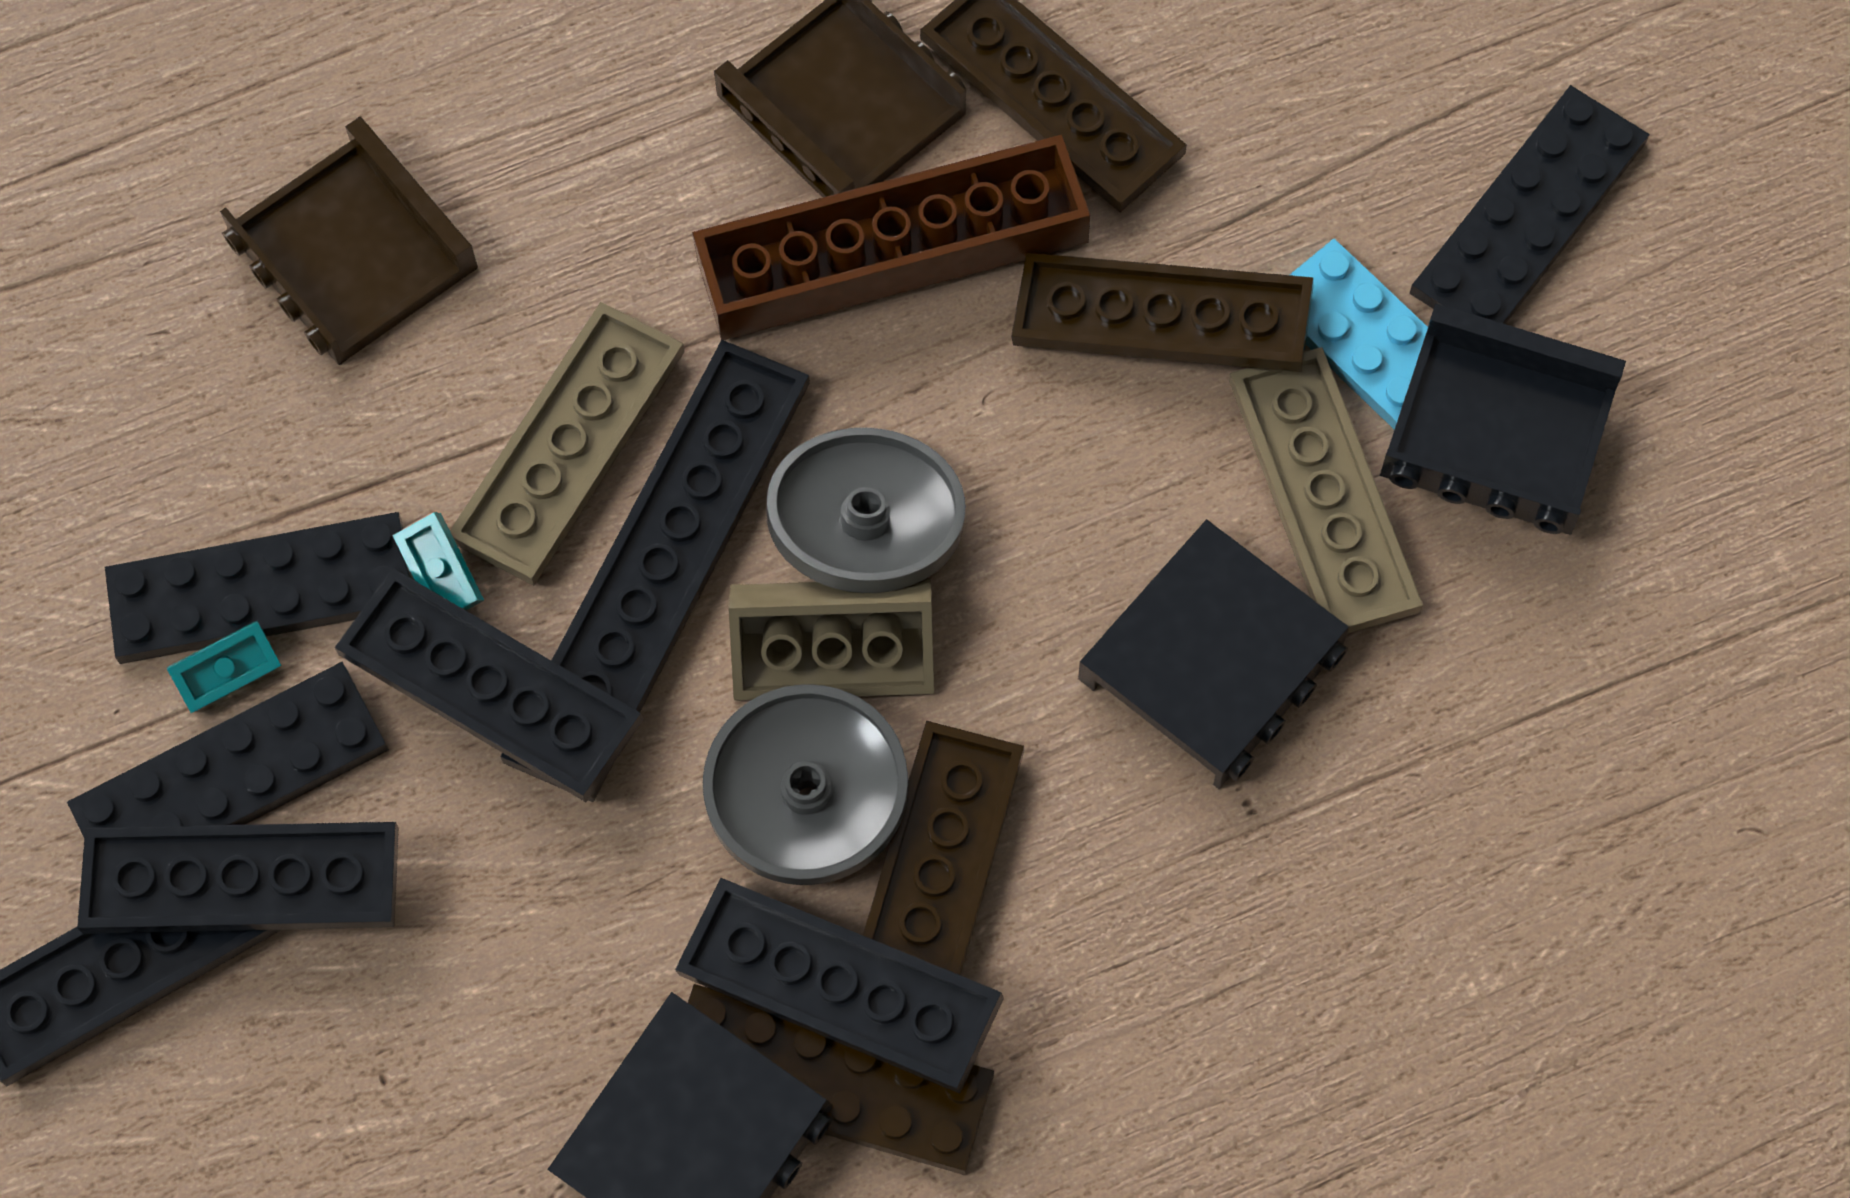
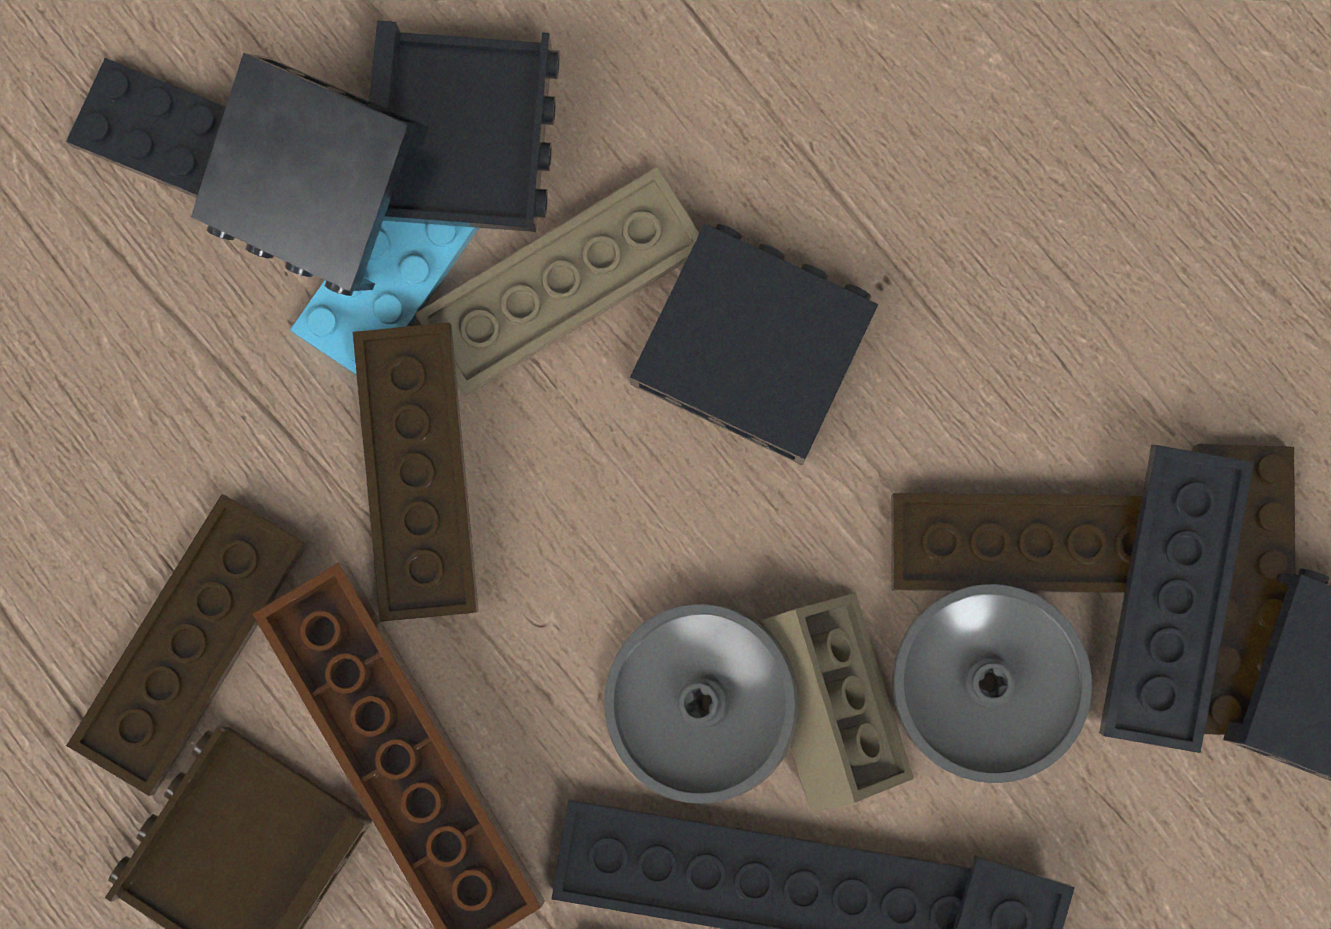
camera: 105 degrees left, 15 degrees up
(1487, 265) = (303, 172): none -> black panel

